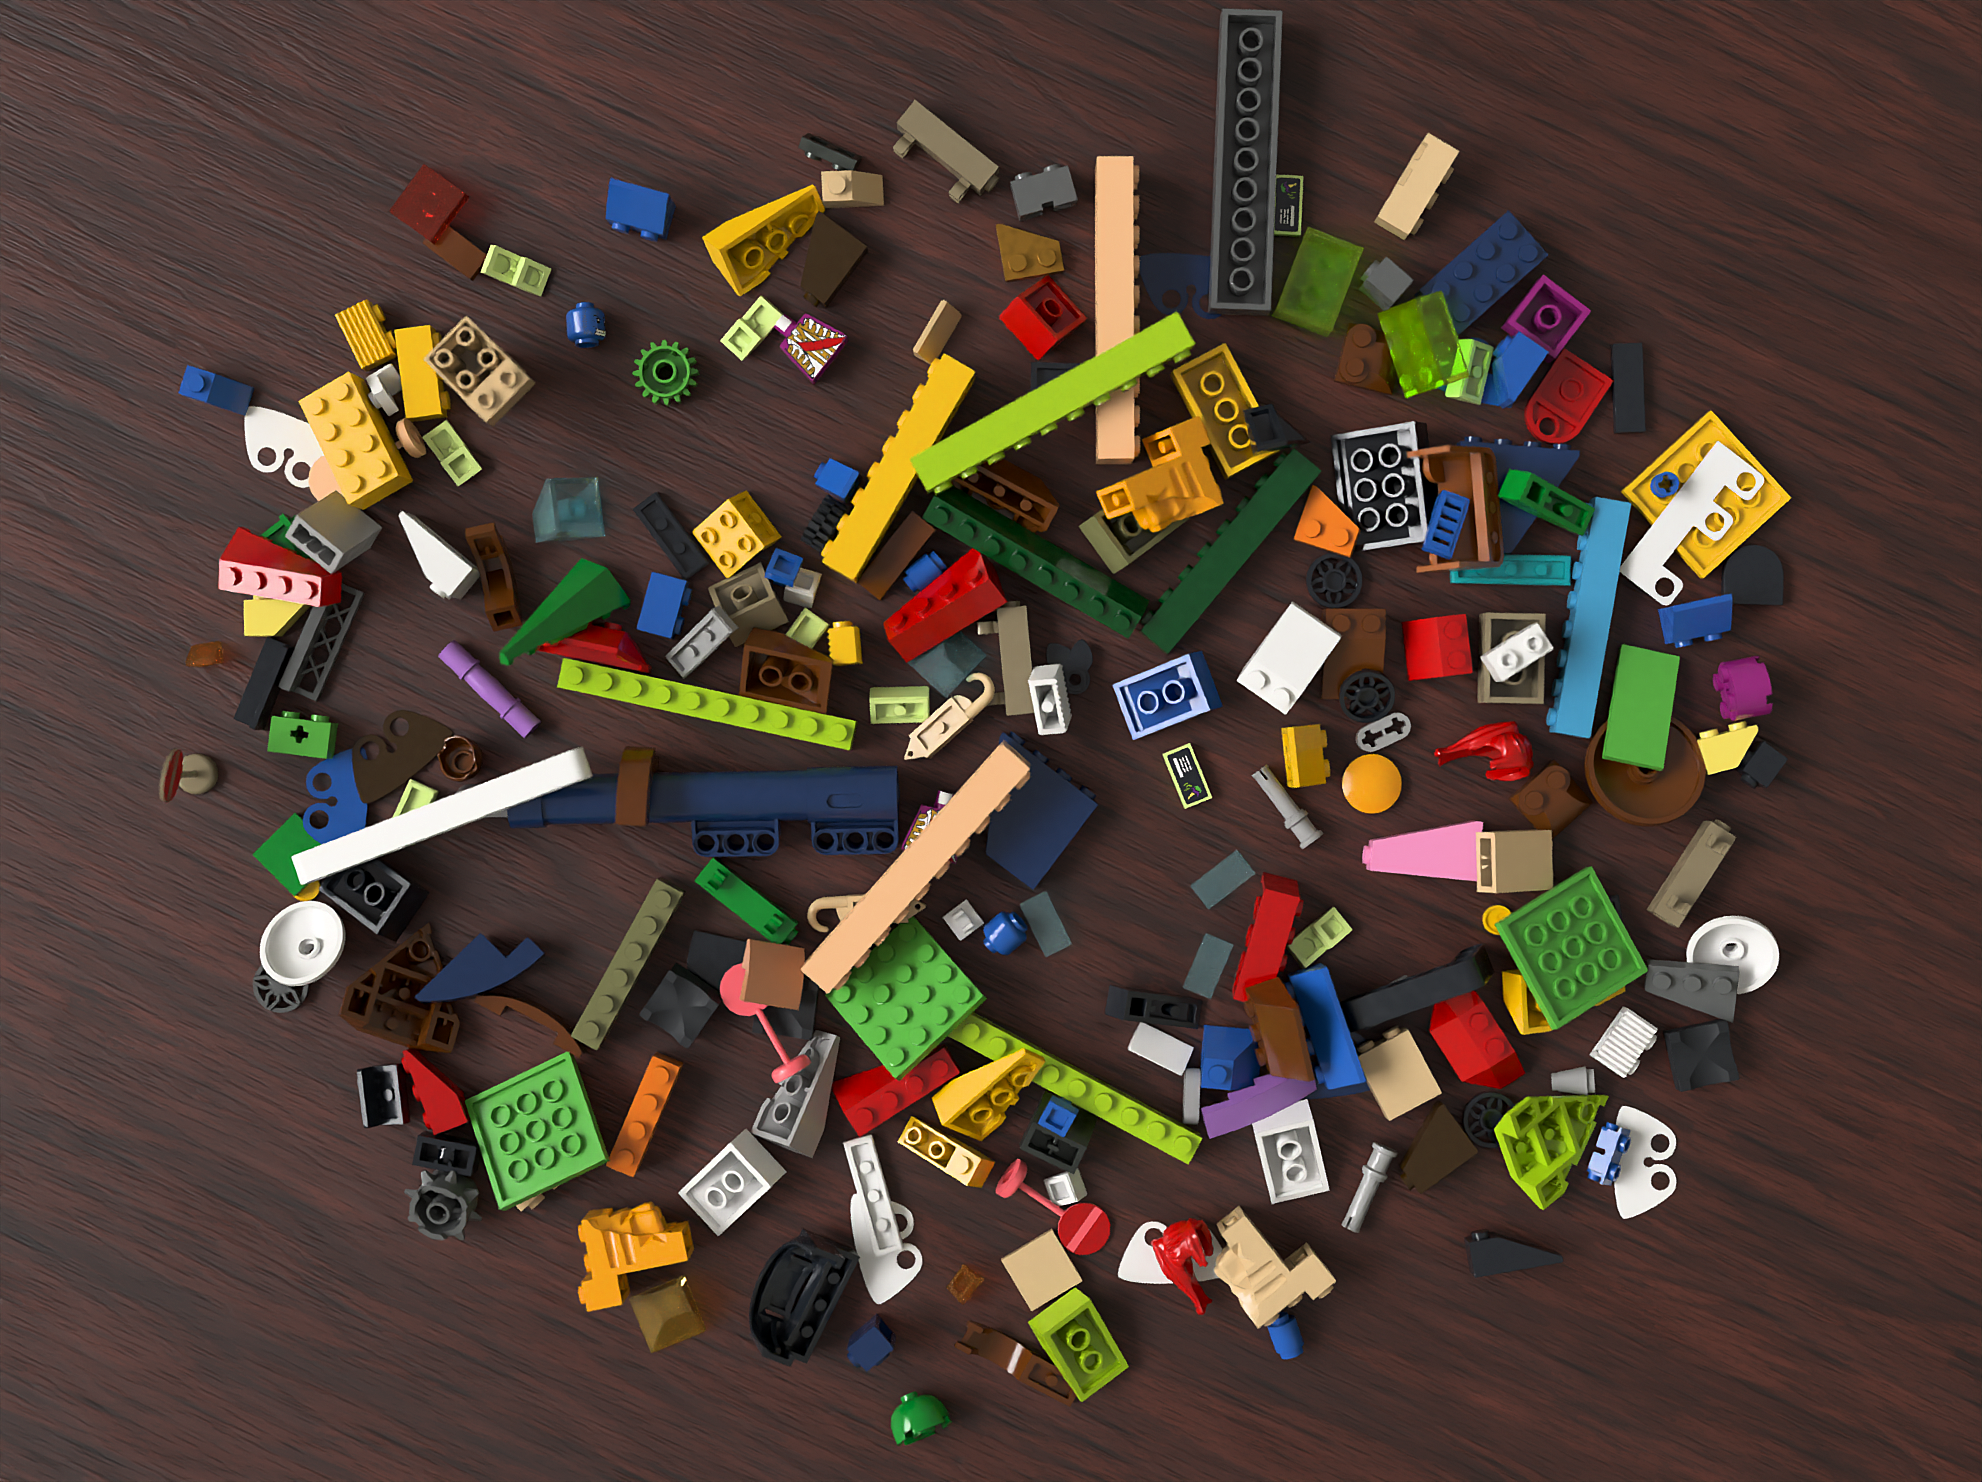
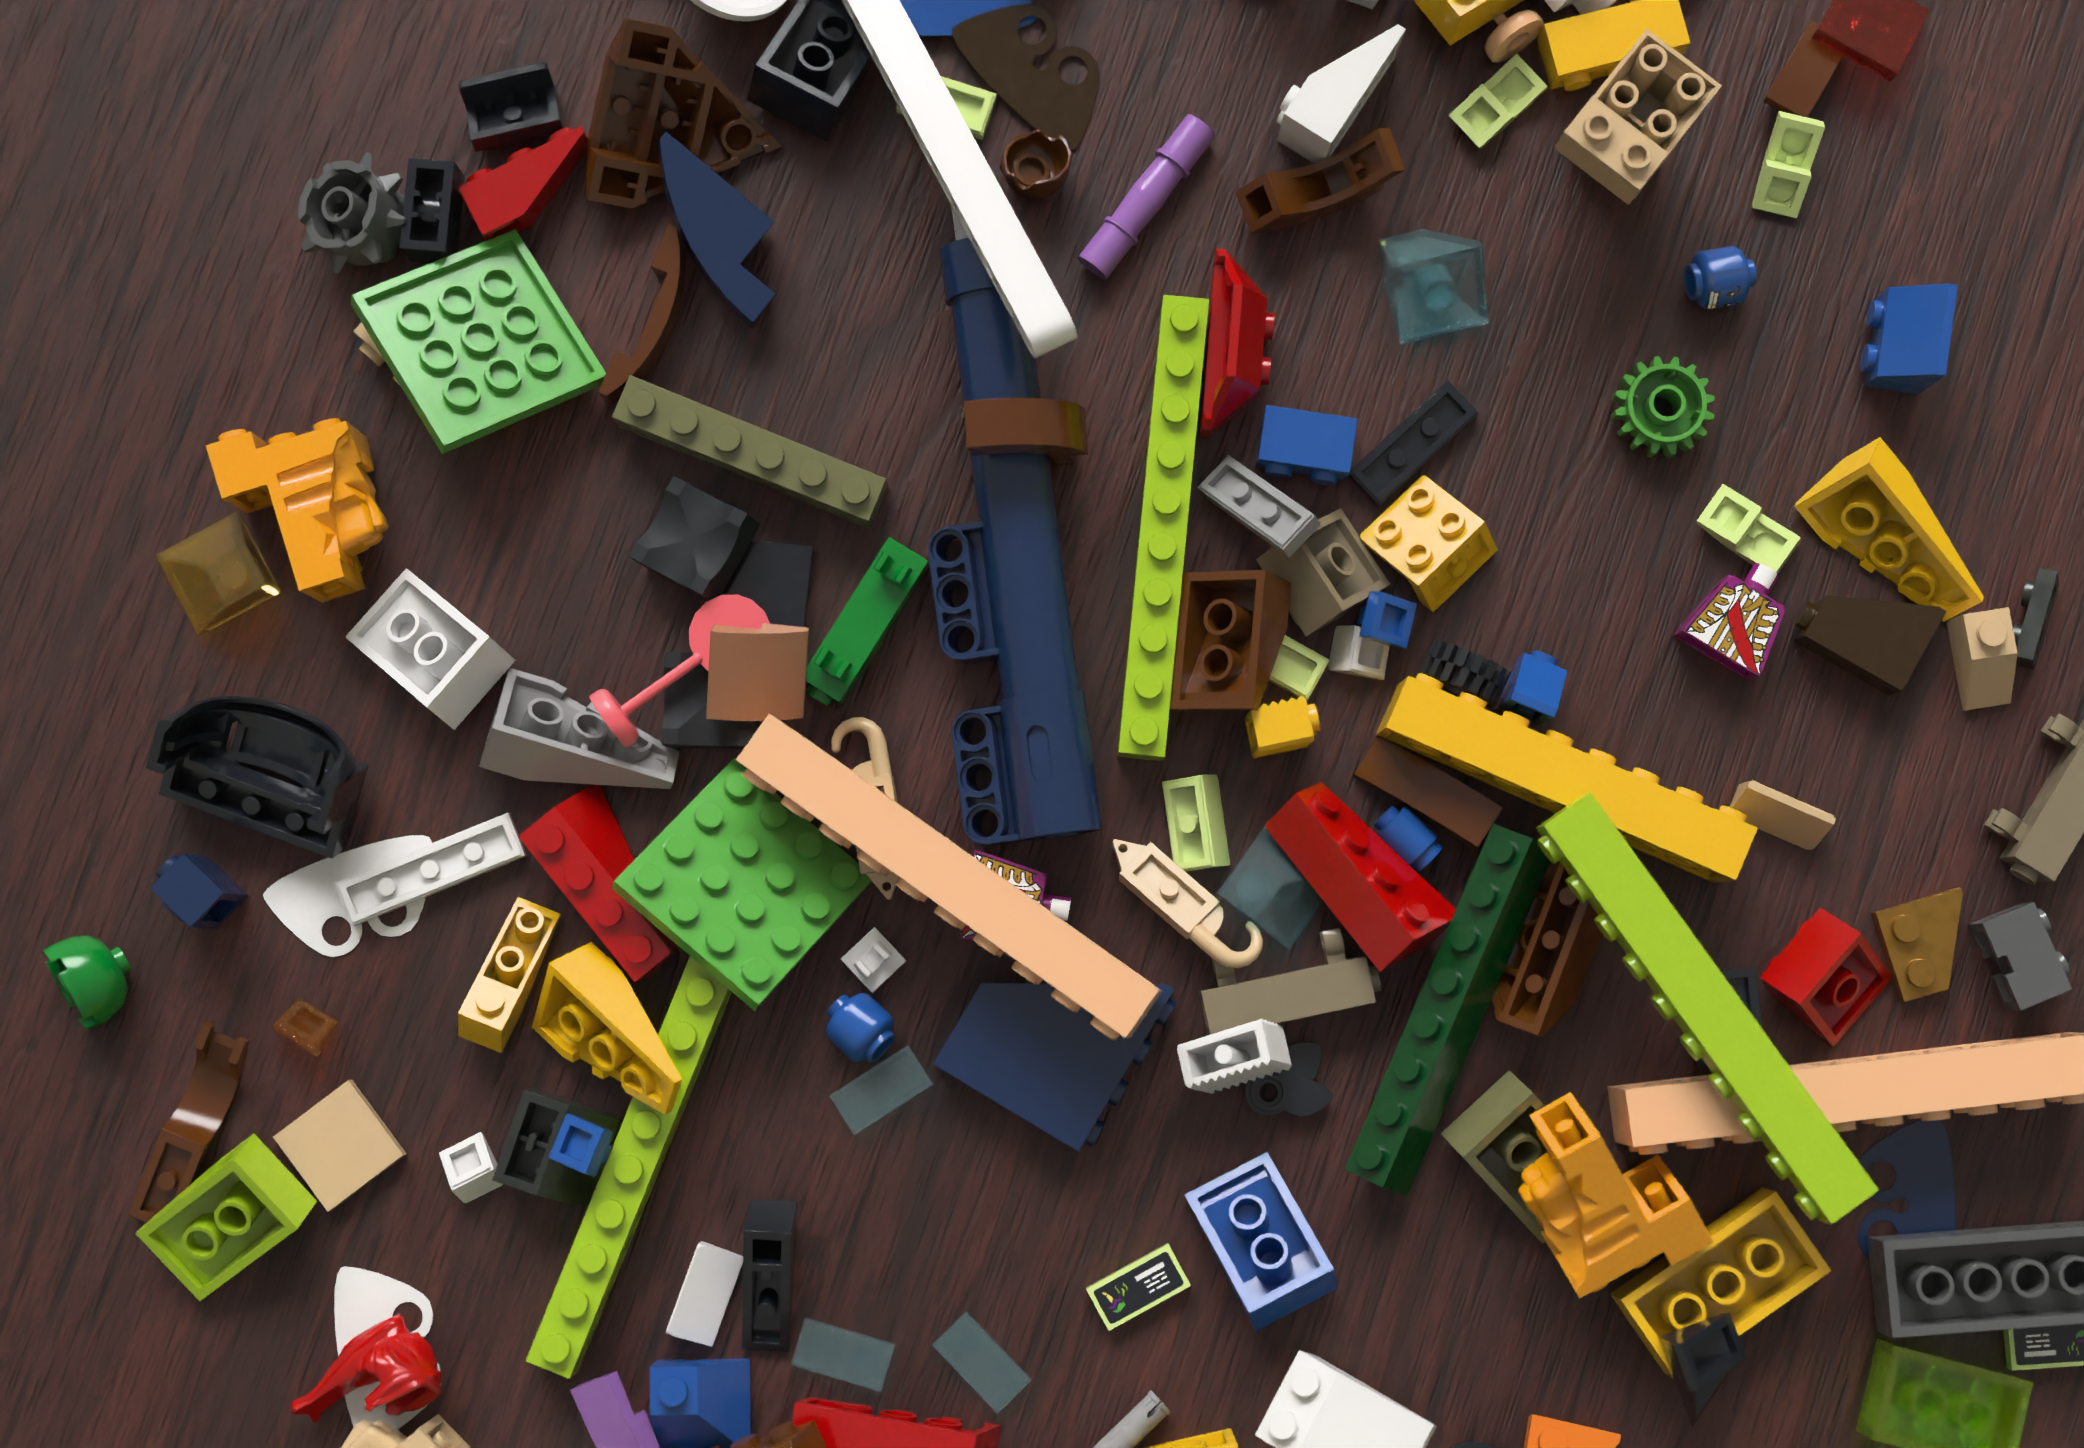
camera: 85 degrees right, 5 degrees down
(580, 597) = (1302, 311): green wedge -> none
(644, 1114) = (521, 502): orange brick -> none
(1082, 1226) = (411, 1200): piece -> none
(1191, 1096) = (634, 1352): light grey beam -> none
(1230, 551) = (1501, 1315): dark green brick -> none

